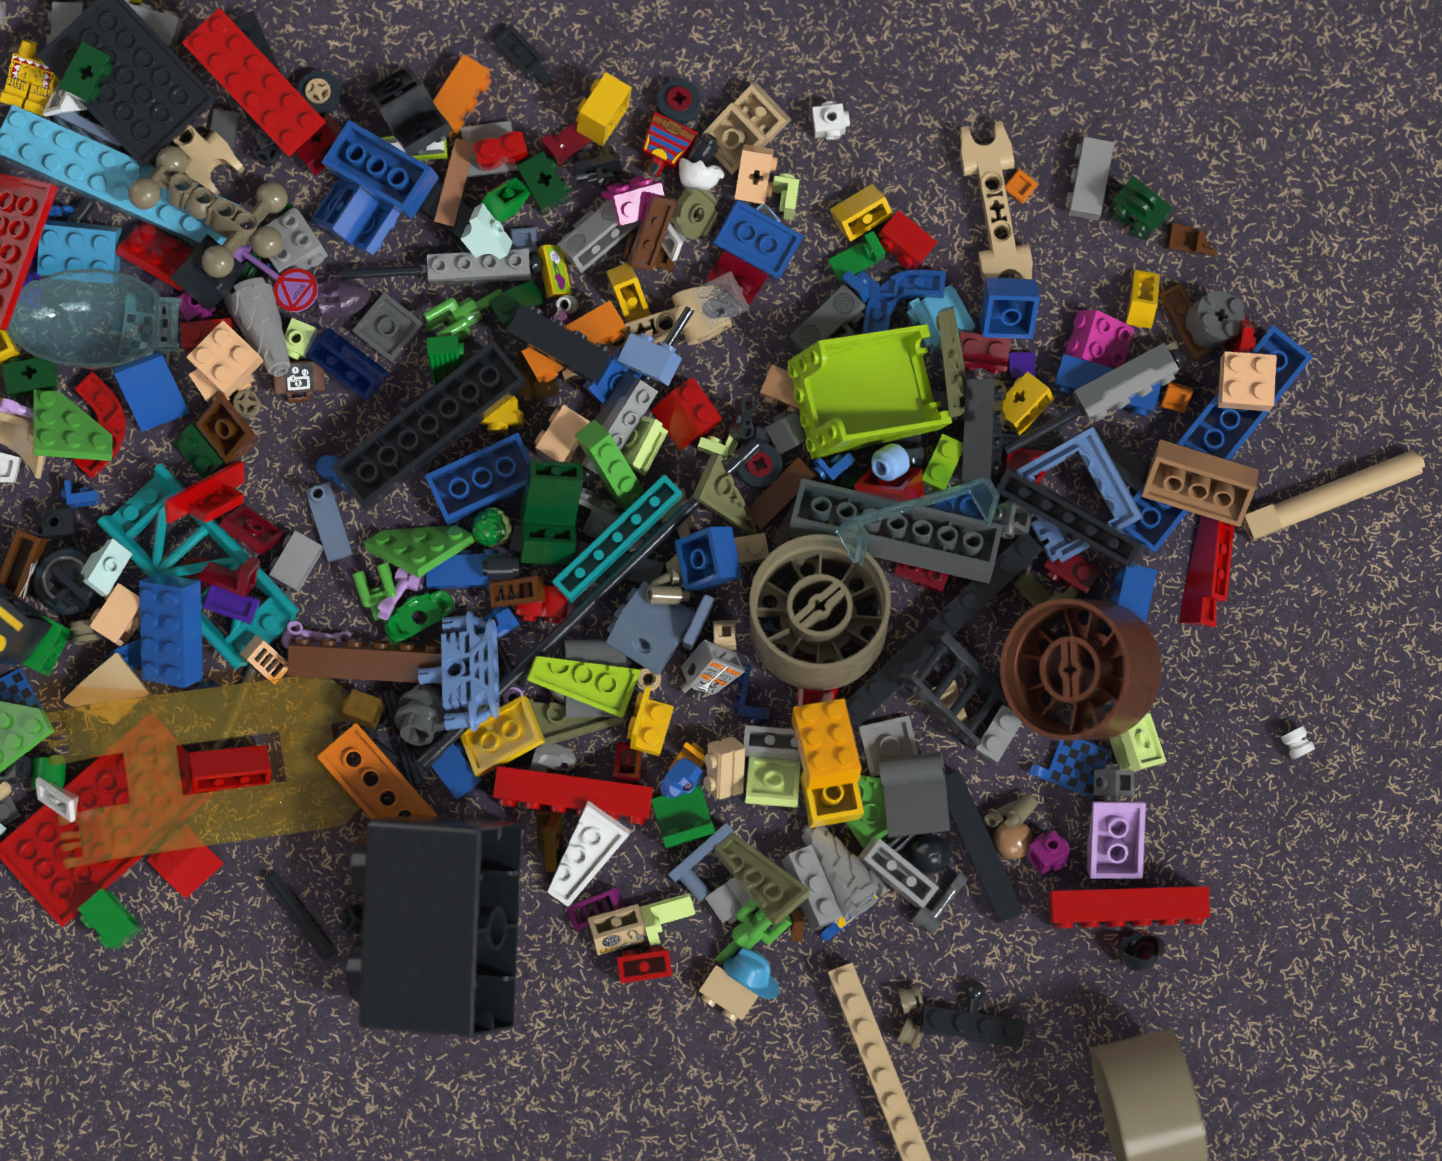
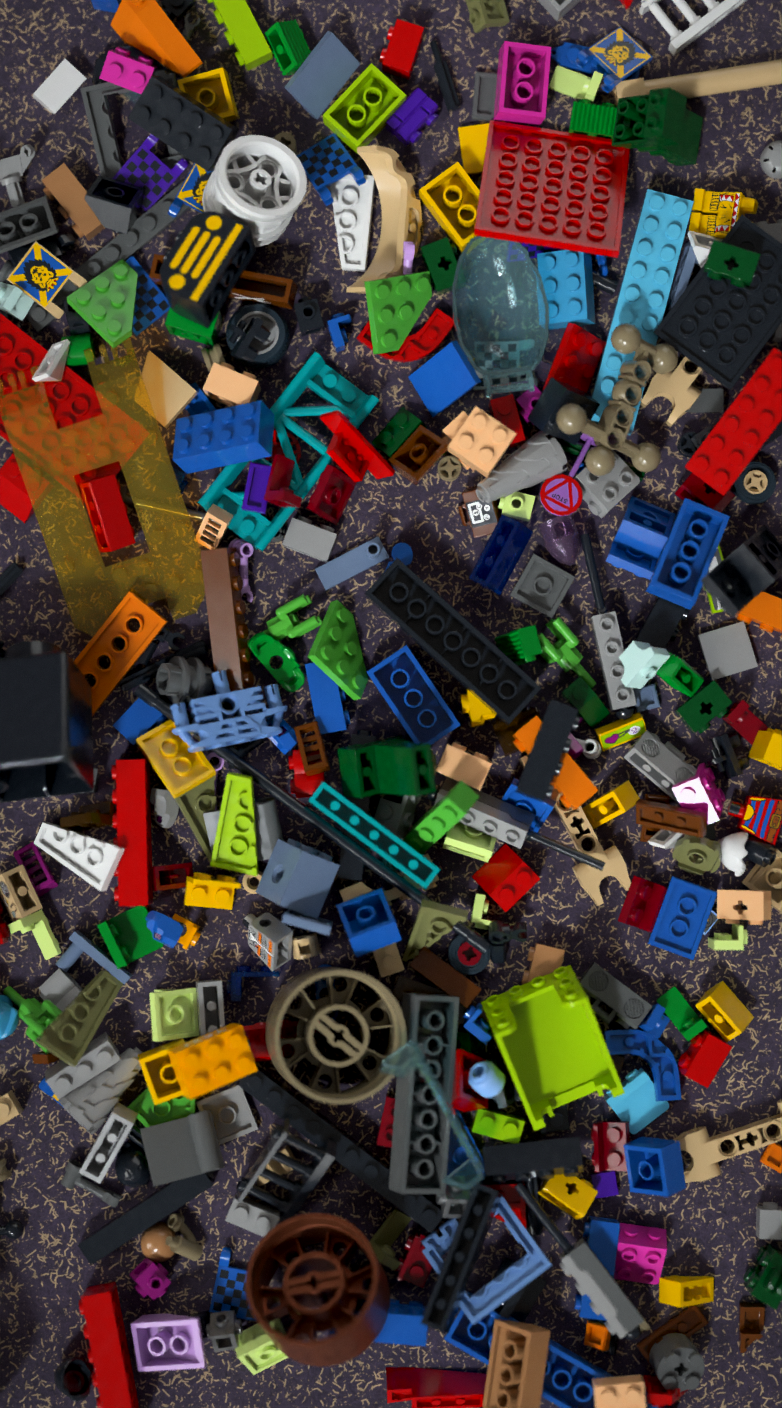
camera: 85 degrees right, 5 degrees up
(105, 566) = (271, 366): light aqua brick -> none
(363, 709) = (181, 625): pearl gold brick -> none
(405, 581) = (305, 642): lavender brick -> none
(454, 182) = (689, 624): nougat sticker -> none
(491, 527) = (369, 714): green piece -> none
(501, 566) = (331, 730): black brick -> none
(507, 149) = (728, 668): red brick -> none
(650, 359) = (548, 836): medium blue brick -> none
(669, 594) = (328, 890): dark tan plant -> none
(720, 299) = (617, 892): clear piece -> none
(725, 768) = (179, 968): tan brick -> none
(786, 431) = (504, 974): dark grey brick -> none
(953, 360) = (590, 1123): olive wing -> none

